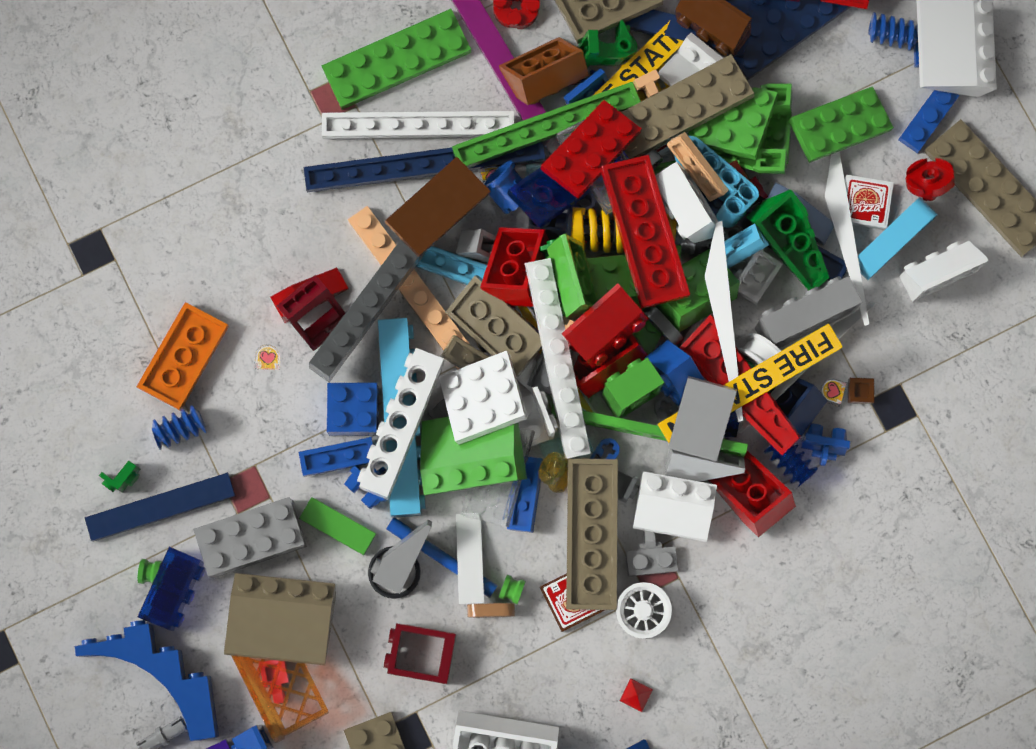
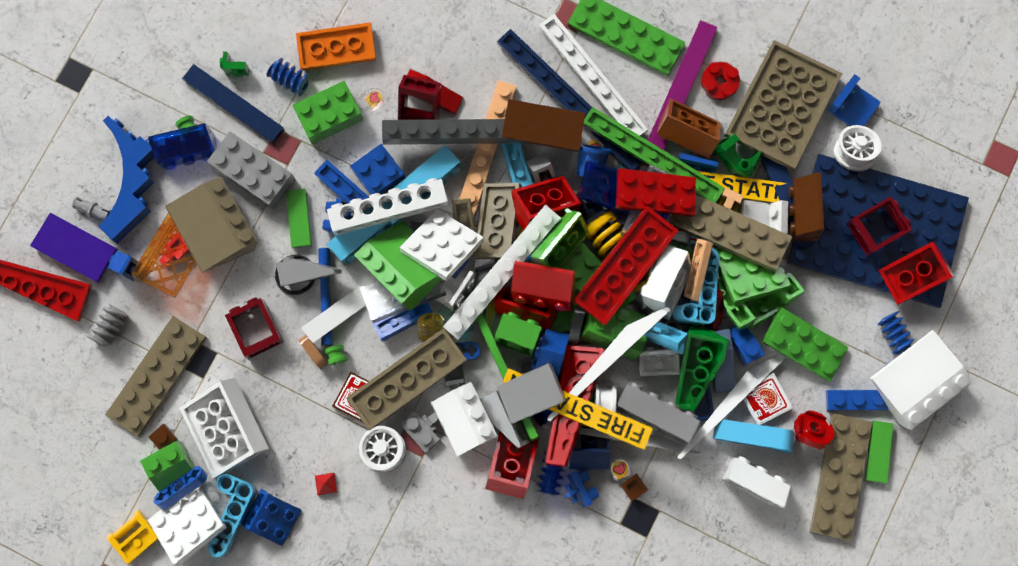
camera: 60 degrees right, 0 degrees up
(249, 414) = (328, 112): none -> bright green brick
(802, 179) = (745, 345): none -> blue slope
(993, 134) = (879, 452): none -> bright green tile

